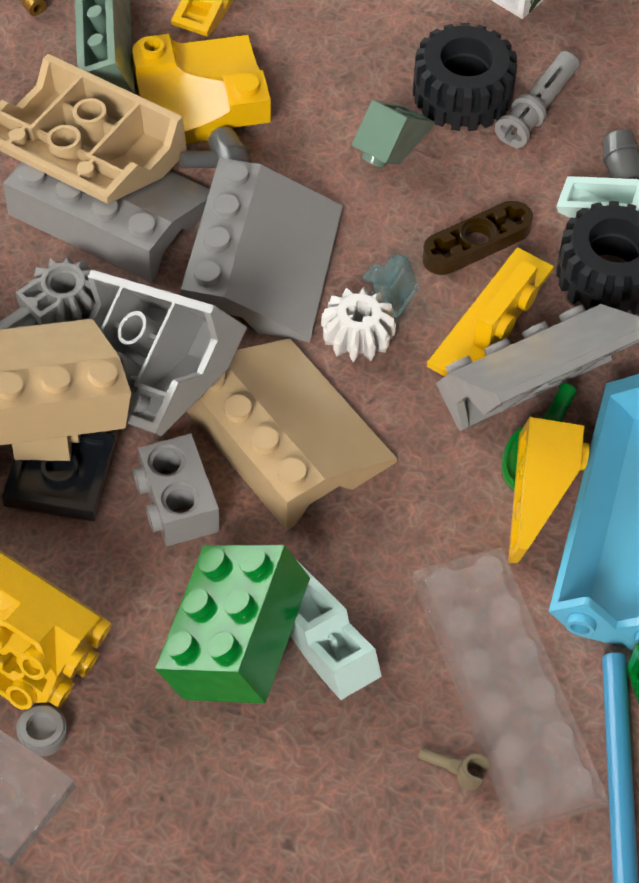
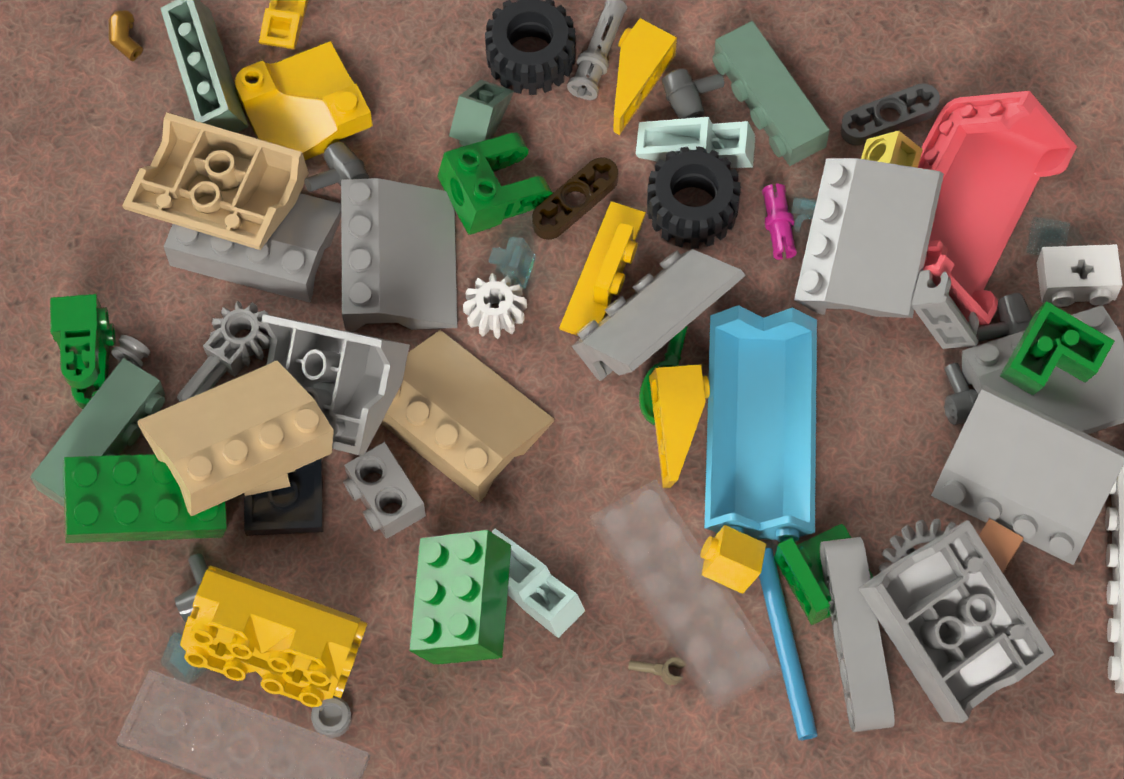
camera: 10 degrees left, 10 degrees up
(367, 205) = (476, 192): none -> green brick
(575, 653) = (732, 558): none -> yellow brick
(584, 118) = (642, 61): none -> yellow slope

